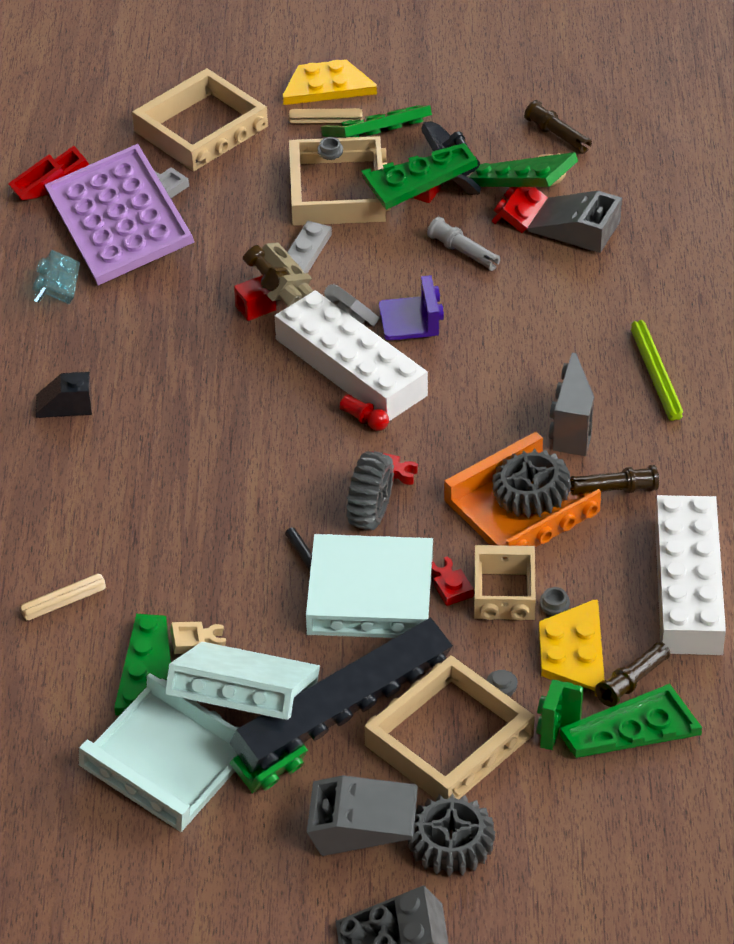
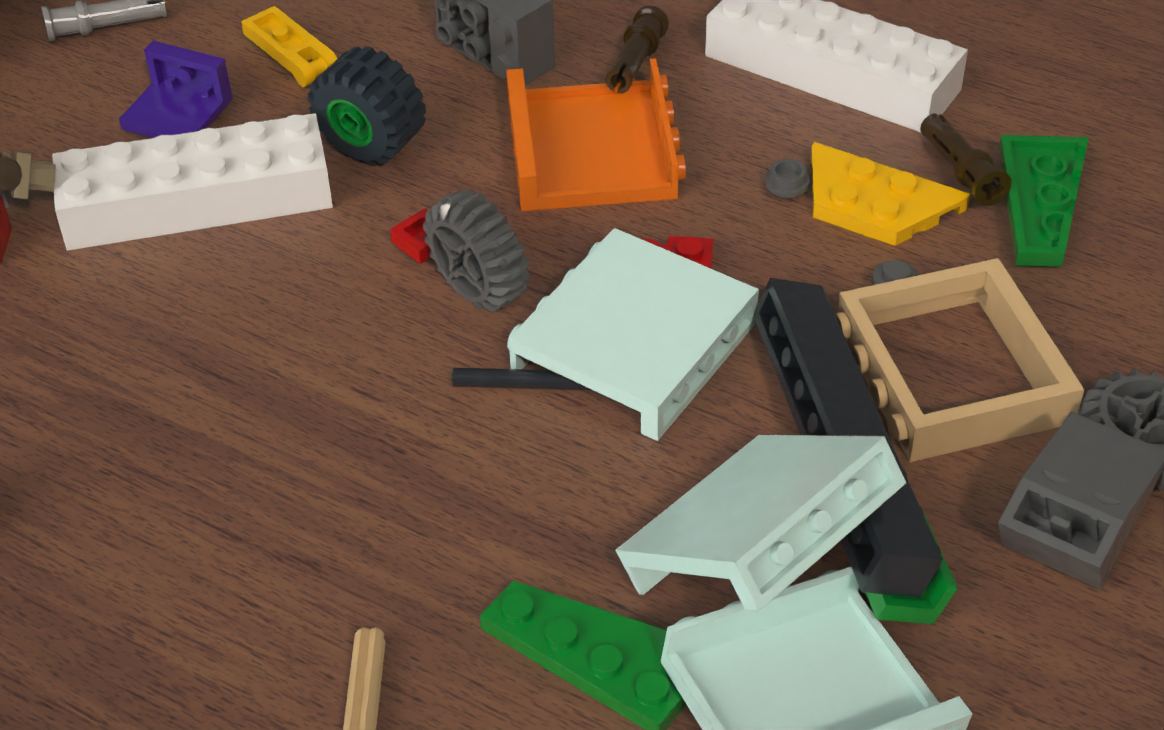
camera: 60 degrees left, 0 degrees up
(189, 634) = (584, 565): tan plate -> none
(350, 304) = (103, 131): light grey hinge -> none
(365, 412) = (330, 207): red pin -> none
(449, 388) = (367, 105): none -> black wheel
(500, 333) = (289, 44): none -> yellow plate
(519, 561) = (753, 184): tan window -> none
(548, 488) = (587, 110): dark grey gear -> none
(557, 710) = (1009, 232): green bracket -> none

